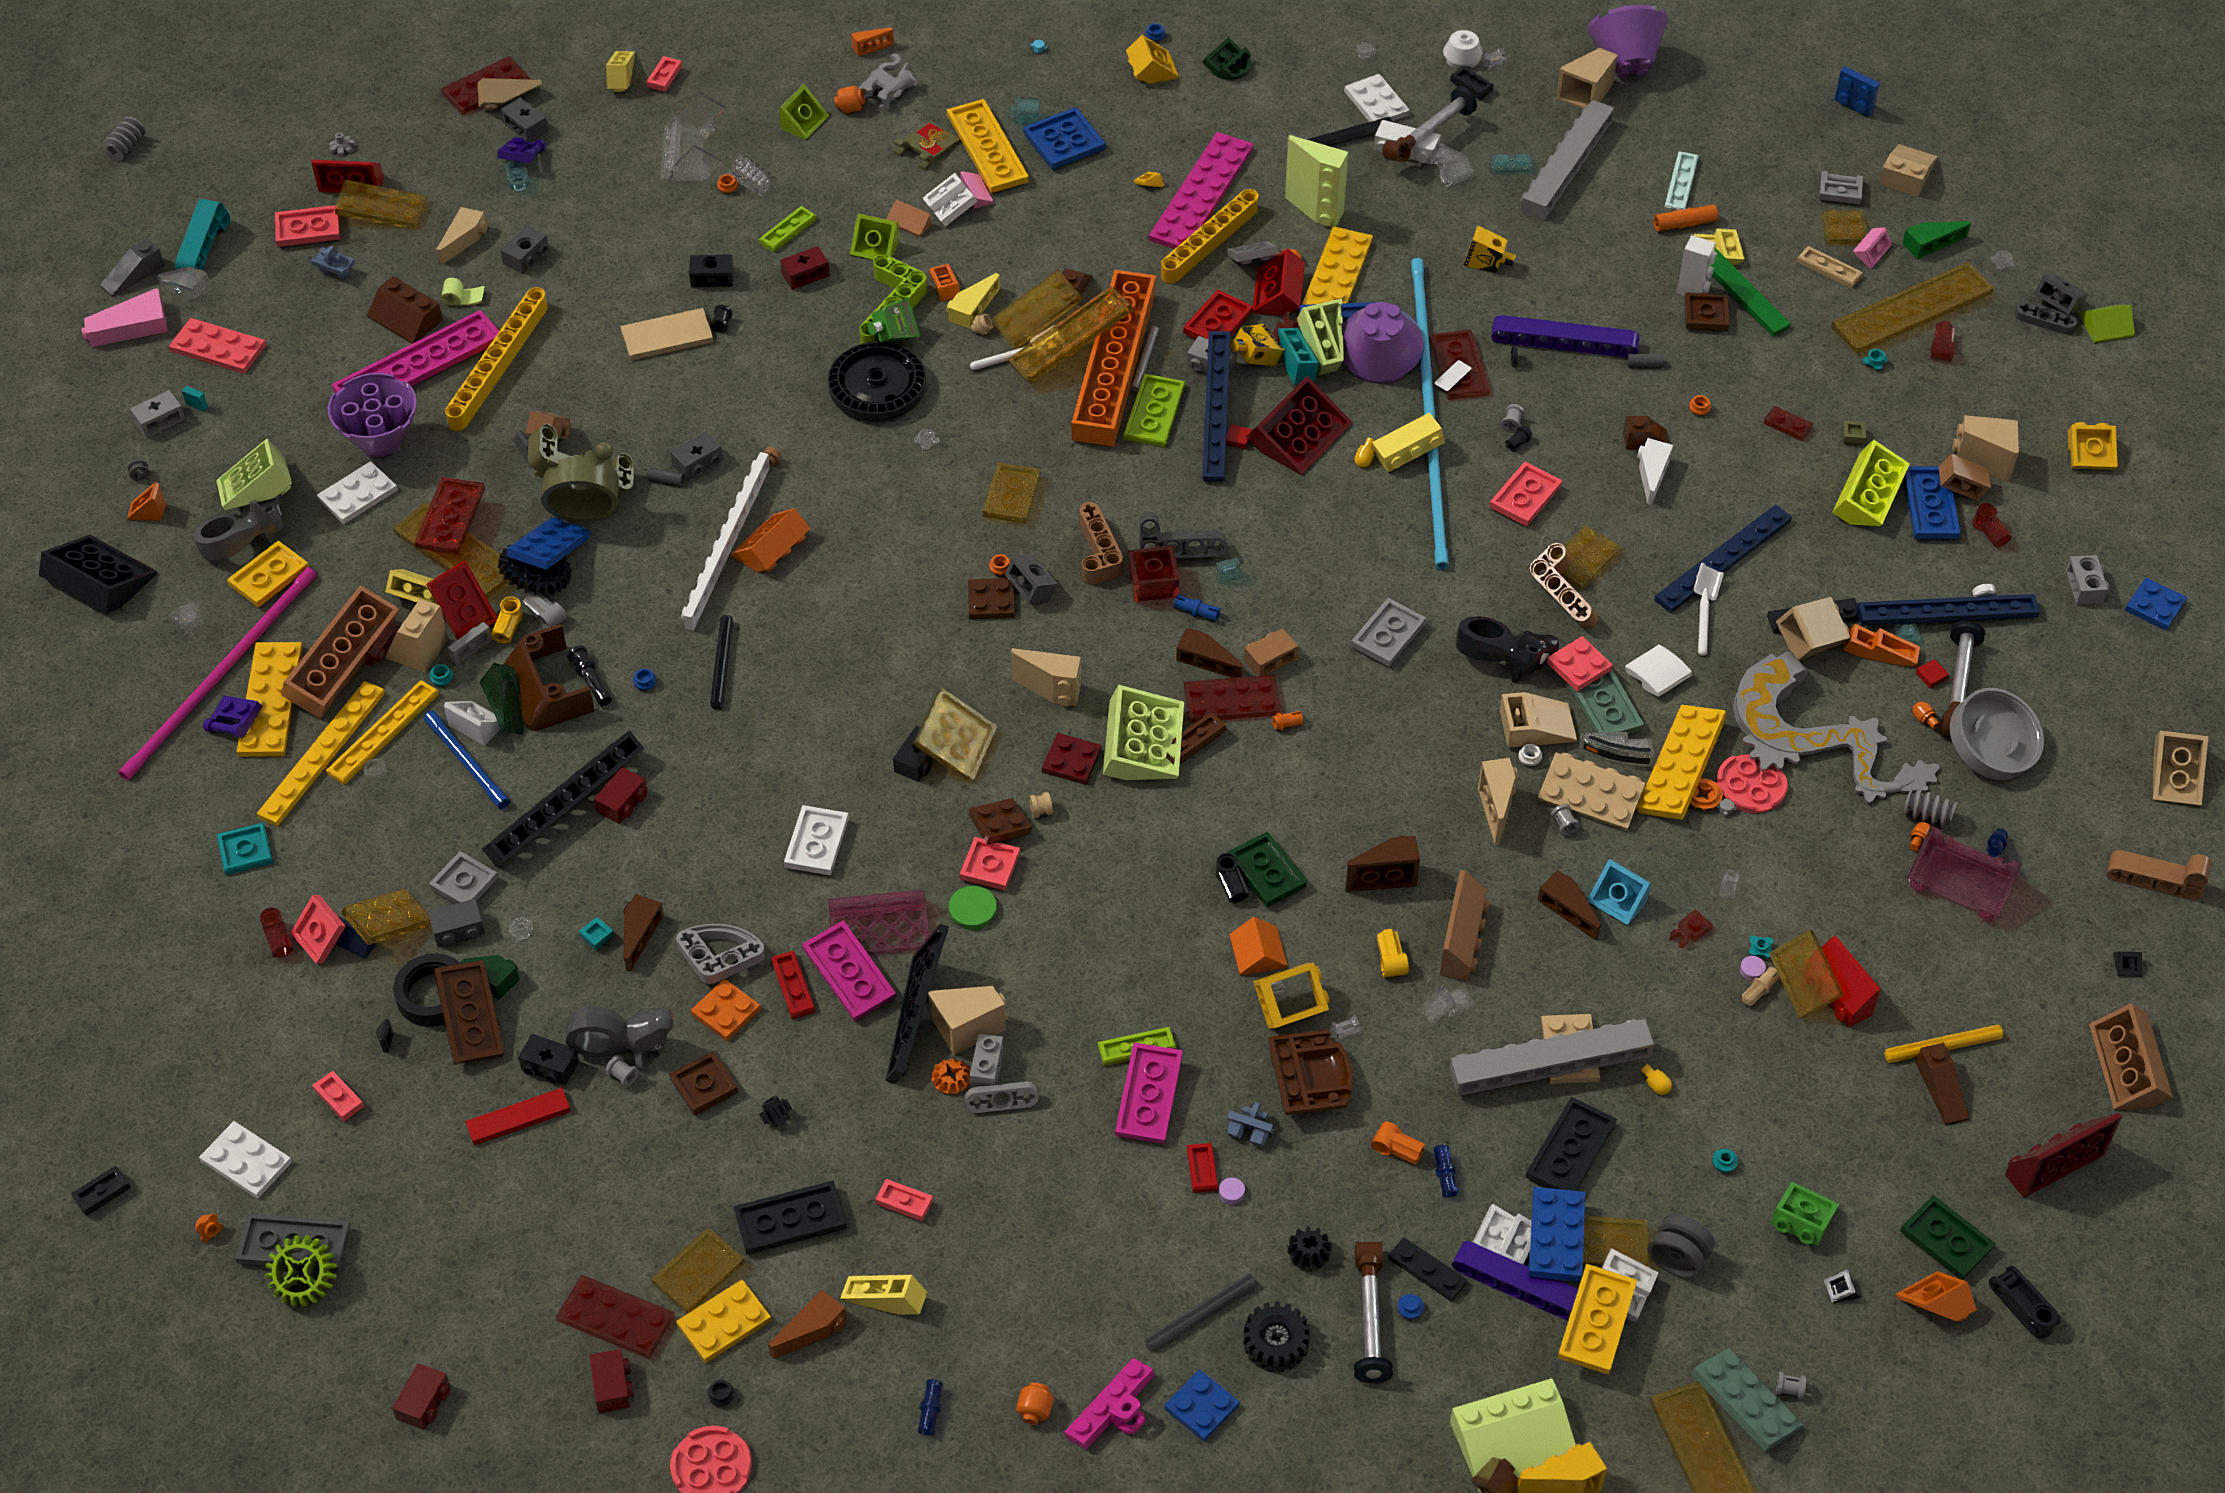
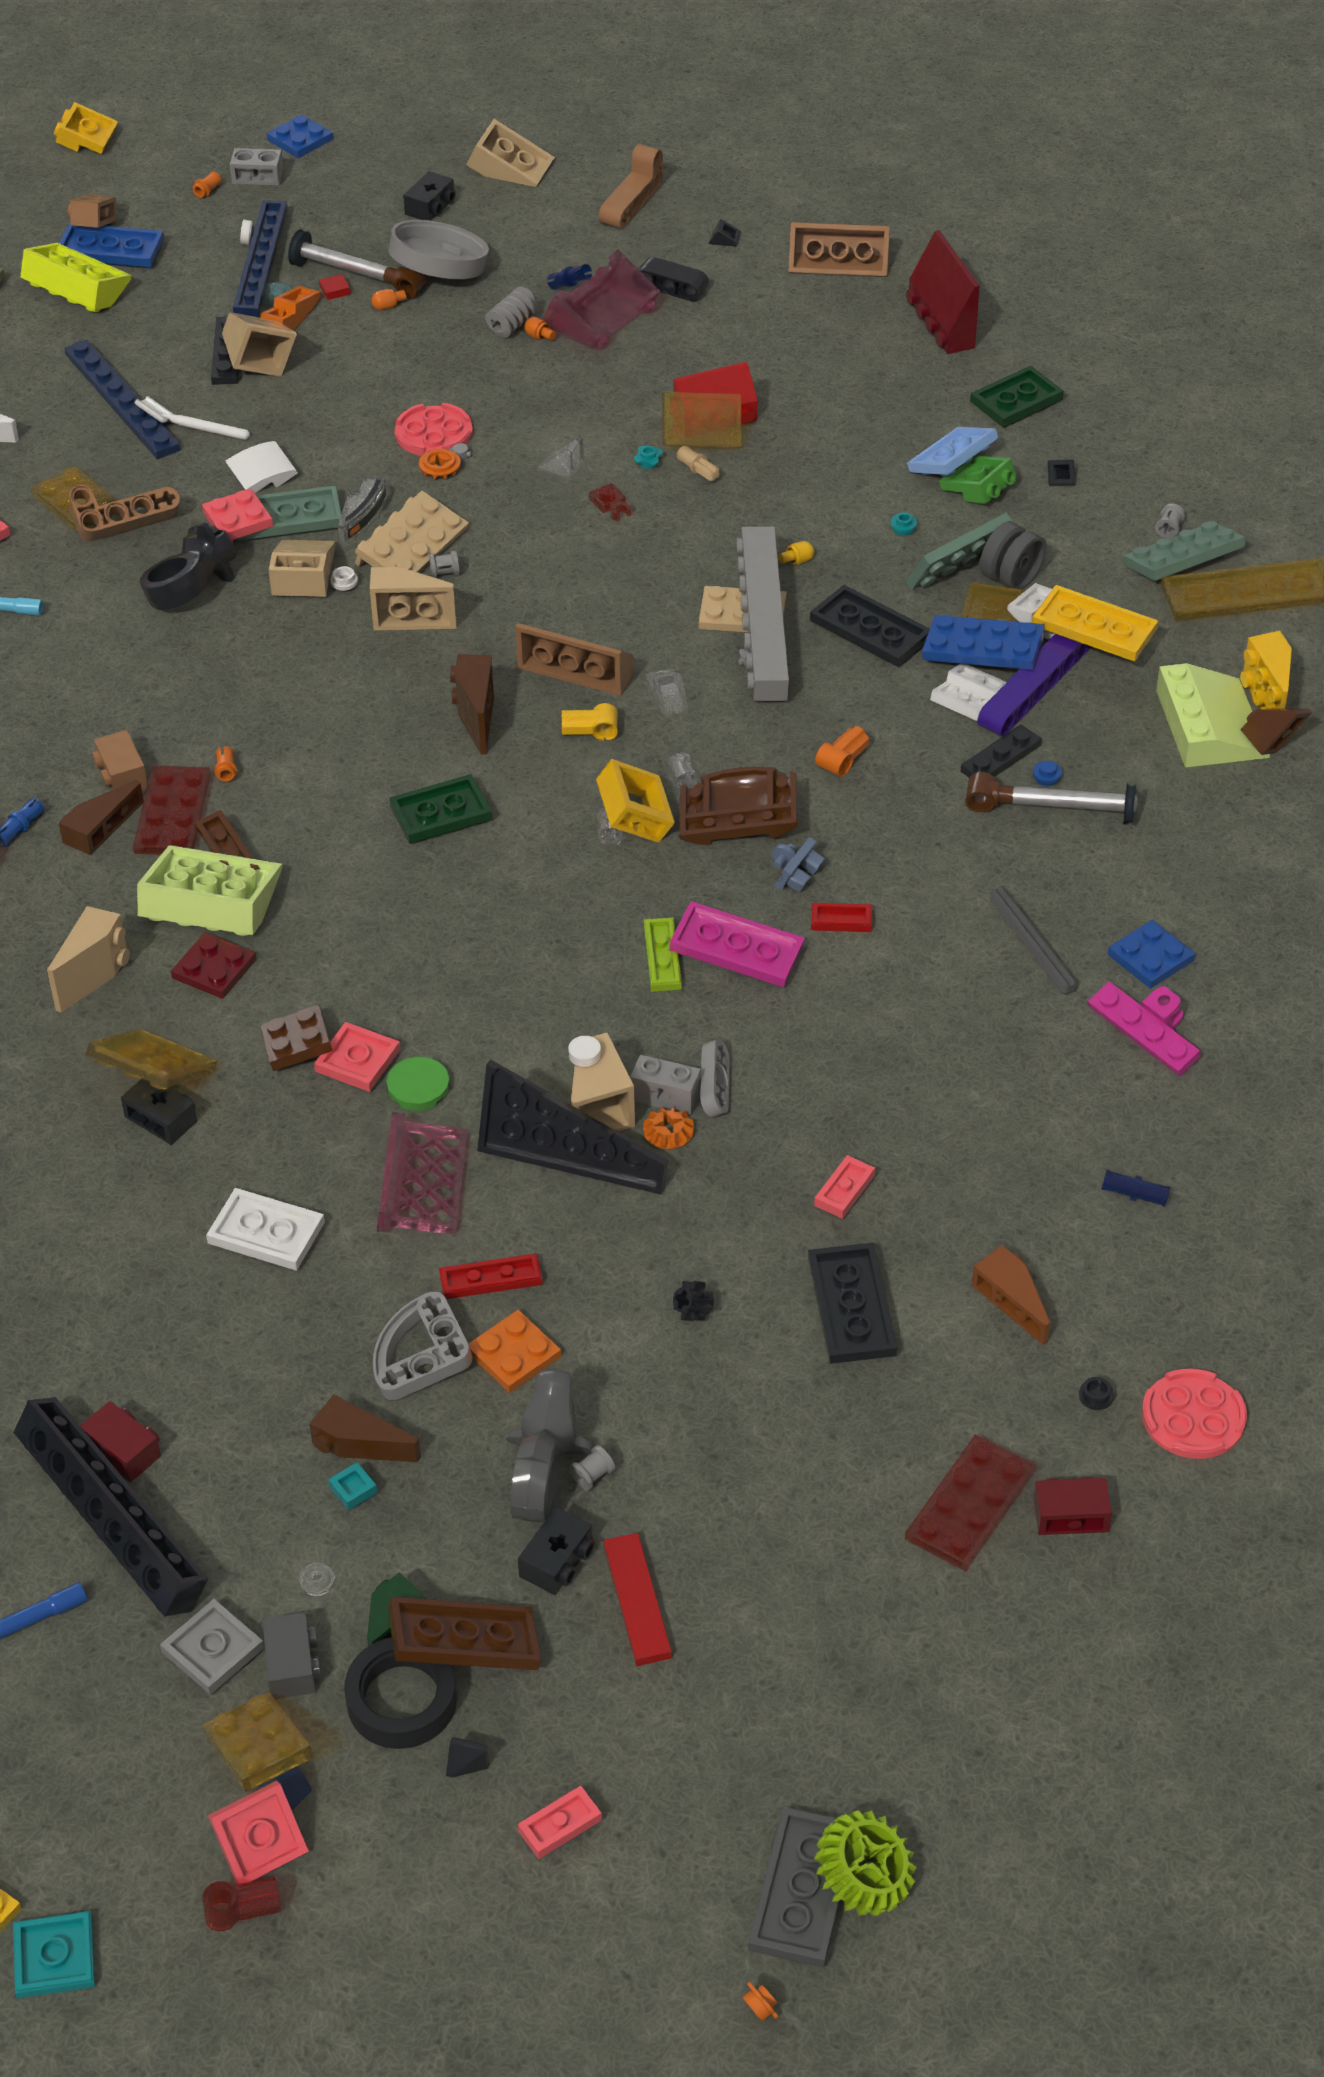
camera: 80 degrees left, 5 degrees down
(245, 1159) = (644, 1955): white plate -> none
(421, 1397) = (1075, 1724): dark red brick -> none
(698, 1270) = (917, 1404): clear yellow plate -> none
(703, 1083) = (629, 1379): reddish brown plate -> none
(723, 1321) = (991, 1385): yellow plate -> none
(849, 971) = (491, 1208): dark pink plate -> none
(886, 1293) = (977, 1215): light yellow slope -> none
(977, 989) = (584, 1051): none -> white tile
(1034, 1403) = (1143, 1088): orange head -> none
(1041, 805) = (282, 996): tan wheel -> none
(1231, 878) = (436, 839): black piece -> none
(1231, 1191) = (878, 895): lavender tile -> none
(1257, 947) = (550, 834): orange slope -> none
(1278, 1322) = (1090, 869): black bush -> none
(1318, 1244) = (967, 837): black gear -> none
(1388, 632) = (125, 662): light grey plate -> none
(1445, 1171) = (883, 721): clear blue pin -> none
(1566, 899) = (560, 575): reddish brown slope -> none
(1620, 892) = (555, 537): medium azure slope -> none
(1670, 1198) = (959, 551): none -> sand green plate
(1681, 762) = (406, 471): yellow plate -> none
(1752, 967) = (671, 467): lavender tile -> none
(1775, 741) = (332, 400): light grey animal -> none
(1835, 1186) = (952, 451): none -> light blue plate
(1941, 1295) = (1081, 408): orange slope -> none
(1942, 1082) = (837, 365): reddish brown slope -> none
(1951, 1042) = (793, 361): yellow axle -> none
(1987, 521) = (152, 212): clear red piece -> none
(1989, 444) = (58, 180): tan slope -> none
(2025, 1302) = (1095, 361): black piece -> none
(2032, 926) = (675, 278): none -> black beam
(2047, 550) = (203, 187): none -> orange pin
(2090, 716) = (429, 196): none -> black brick

